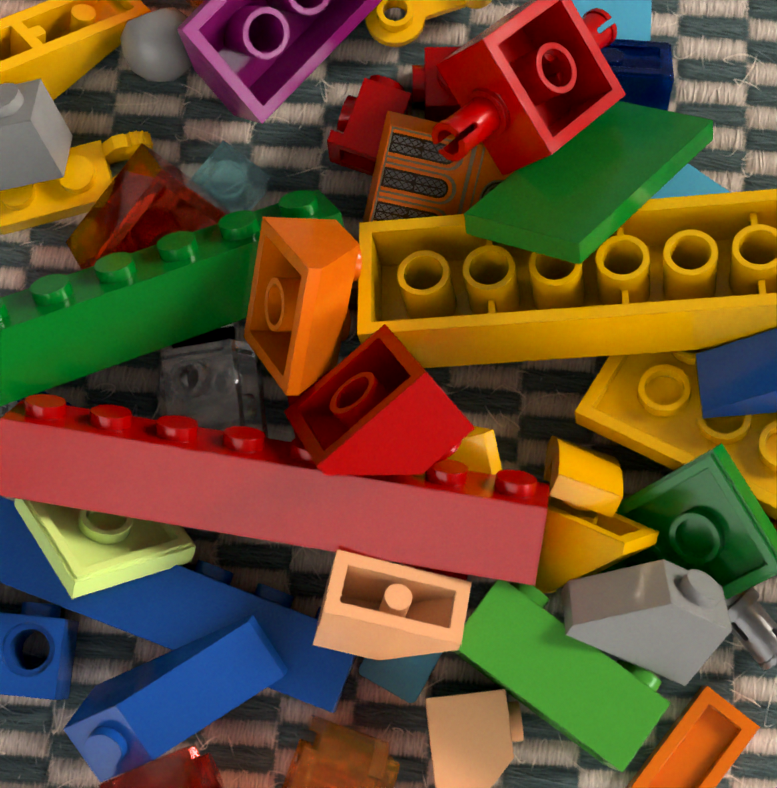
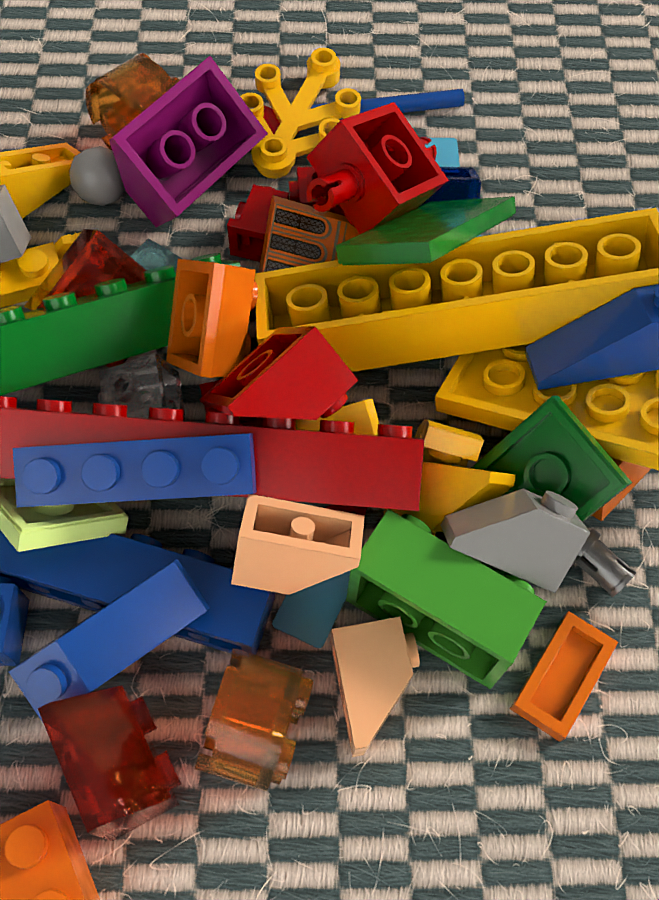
camera: 10 degrees left, 15 degrees down
(207, 514) = (135, 470): none -> blue plate

